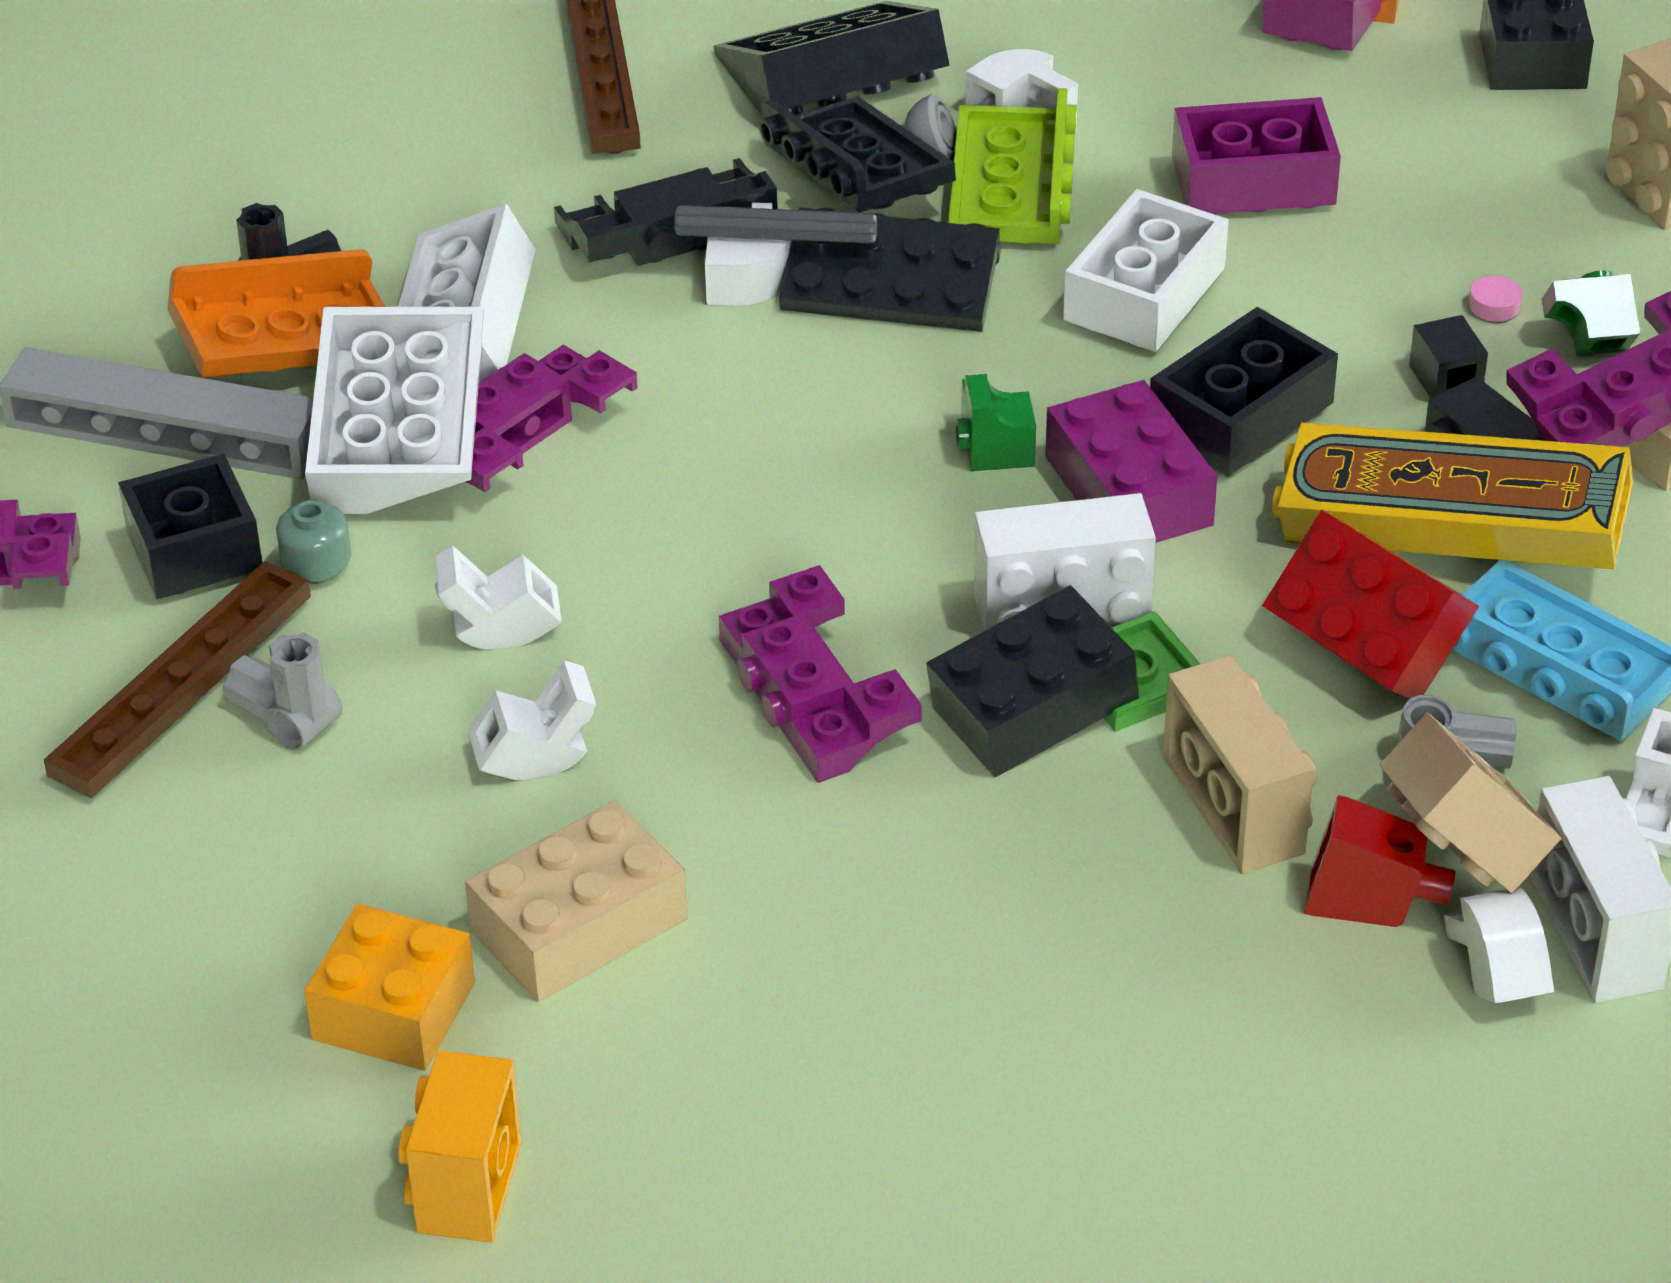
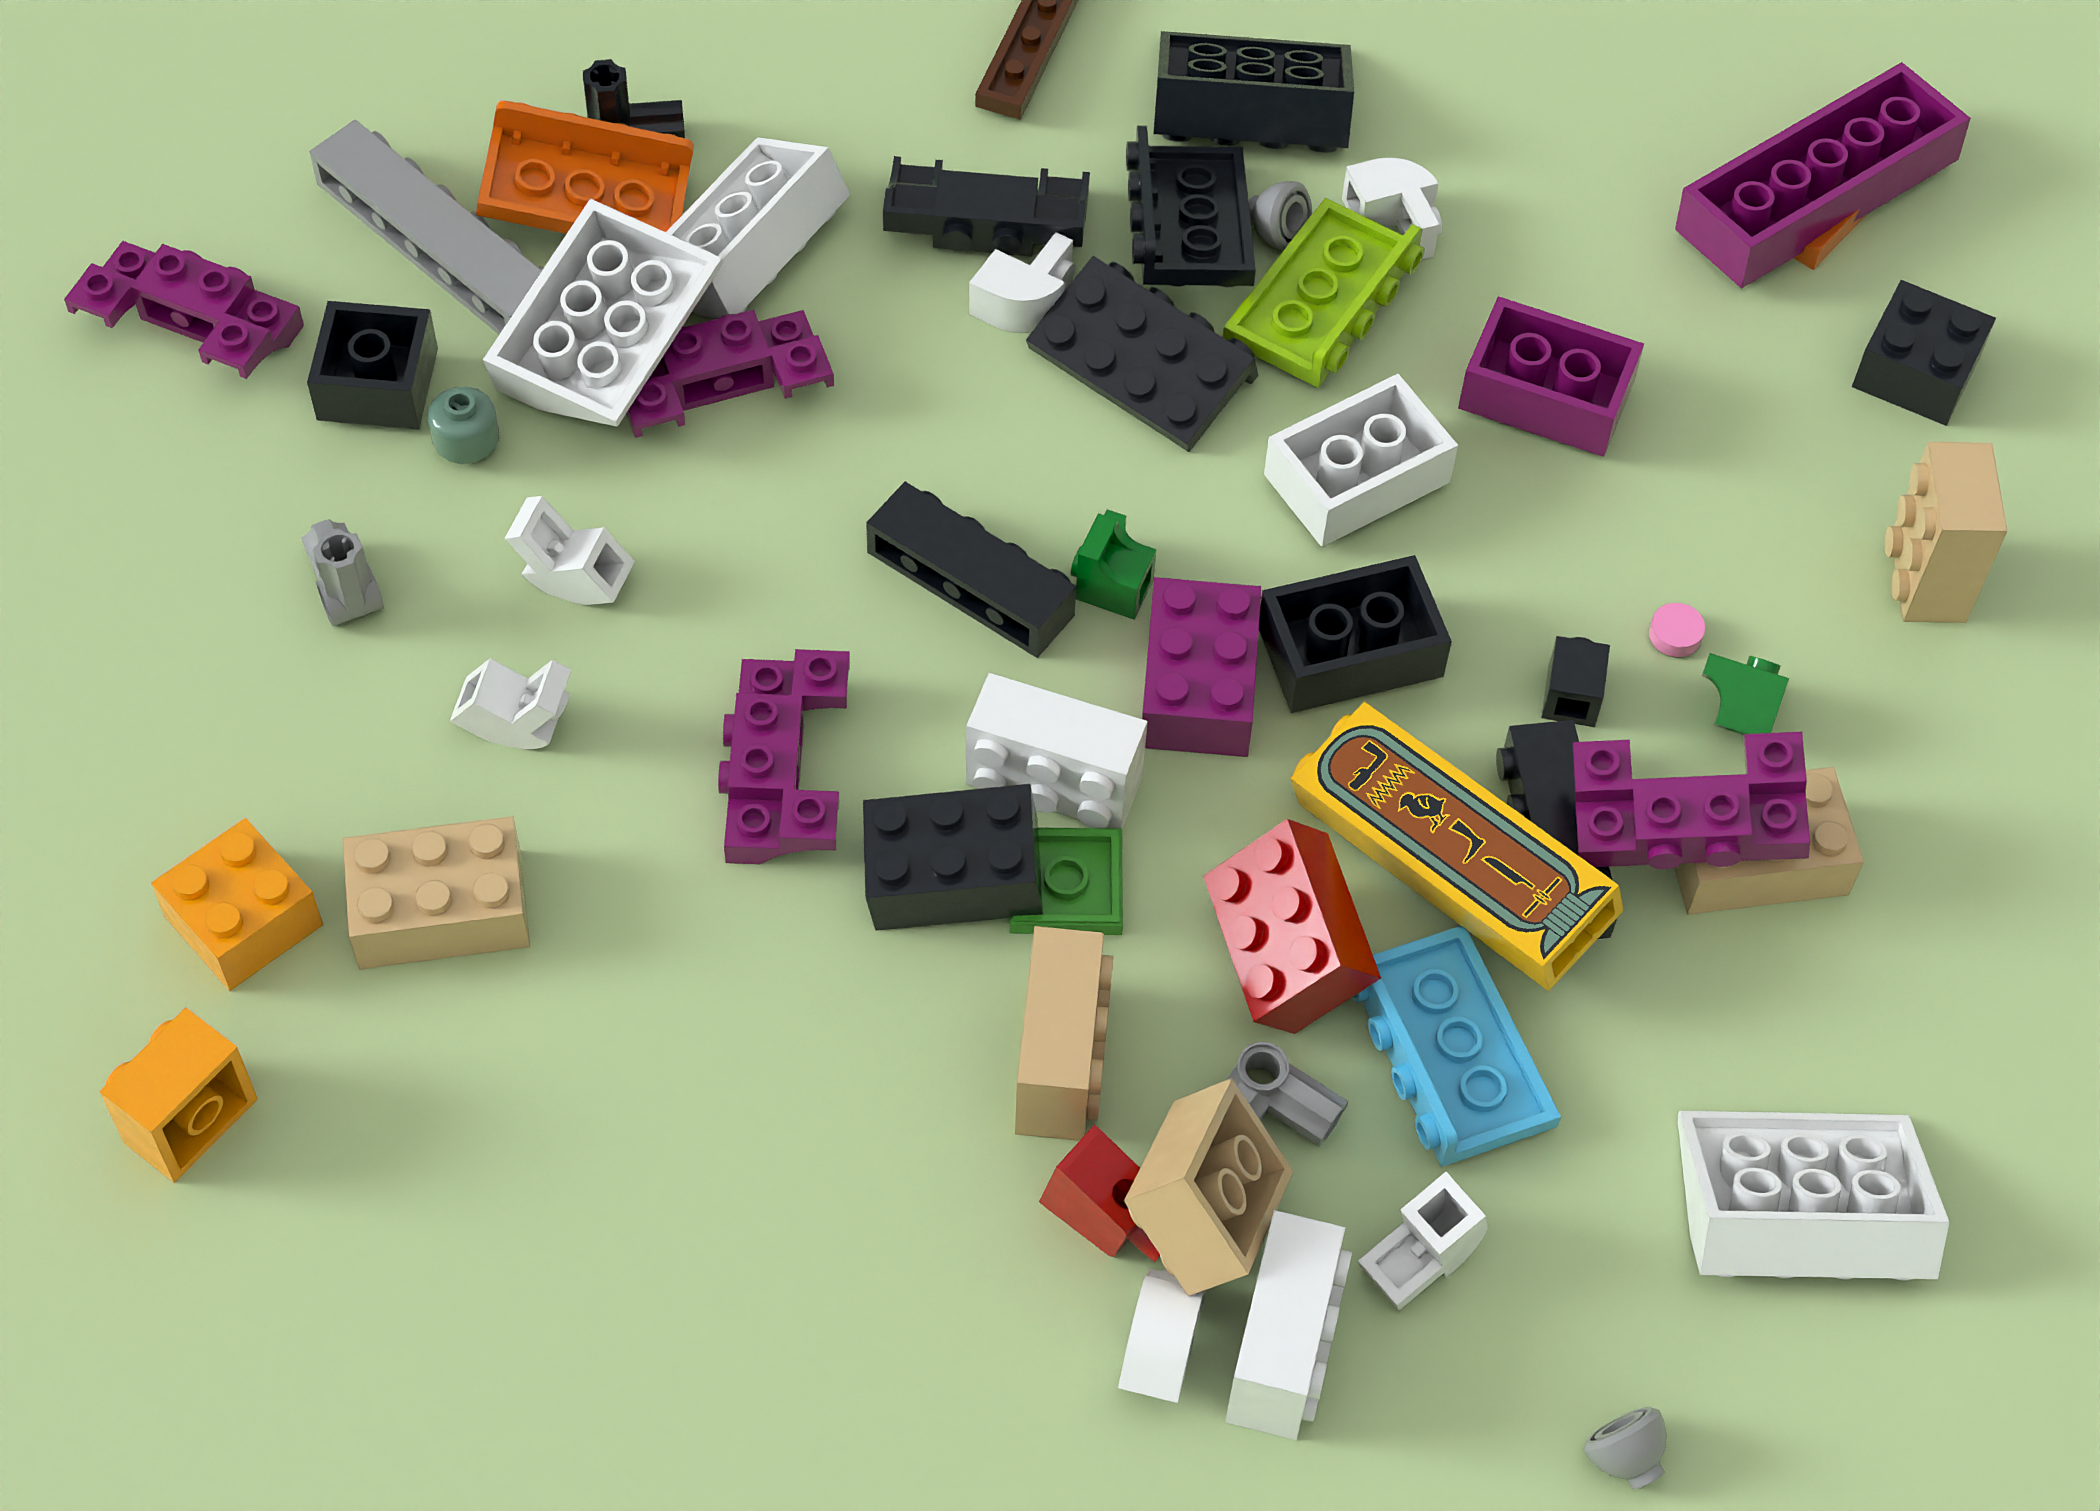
camera: 25 degrees right, 15 degrees up
(176, 679) = (278, 511): reddish brown plate -> none
(775, 224) = (1053, 269): dark grey axle -> none
(869, 475) = (971, 568): none -> black brick

